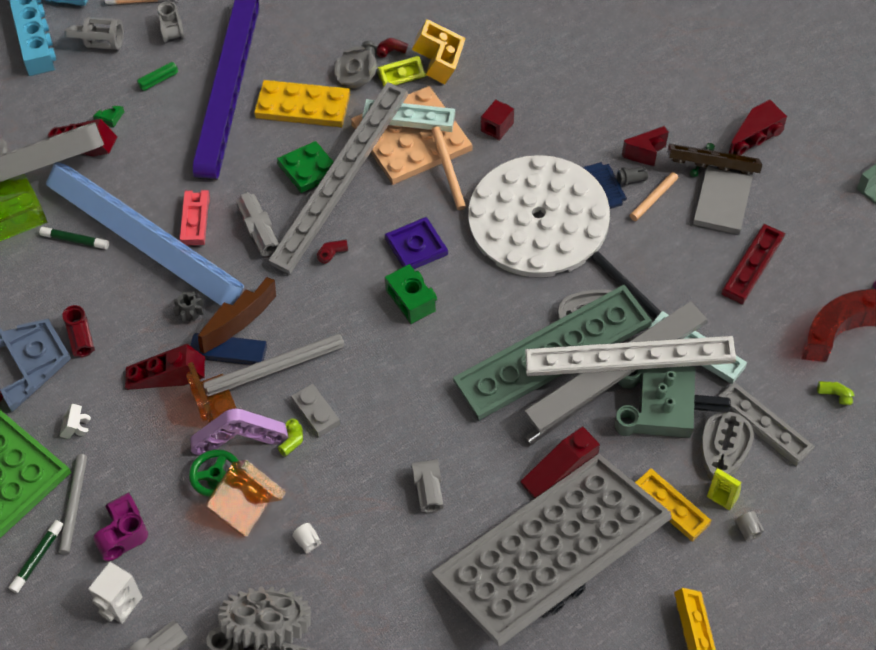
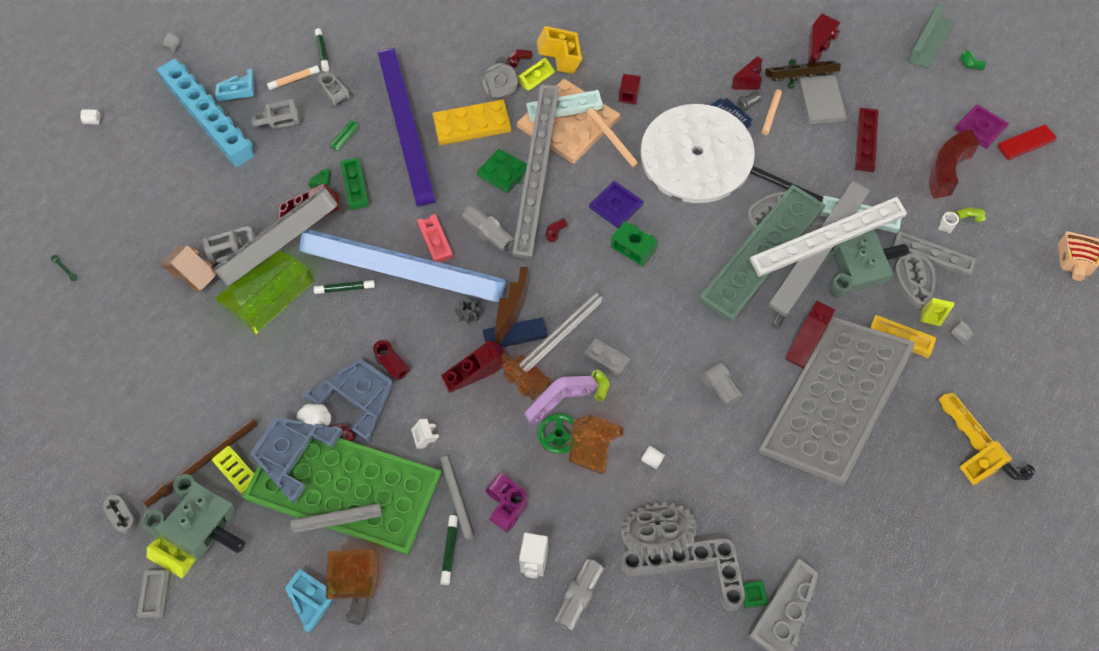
camera: 20 degrees left, 5 degrees up
(140, 131) = (354, 183): none -> green plate
(801, 391) = (948, 222): none -> white hose

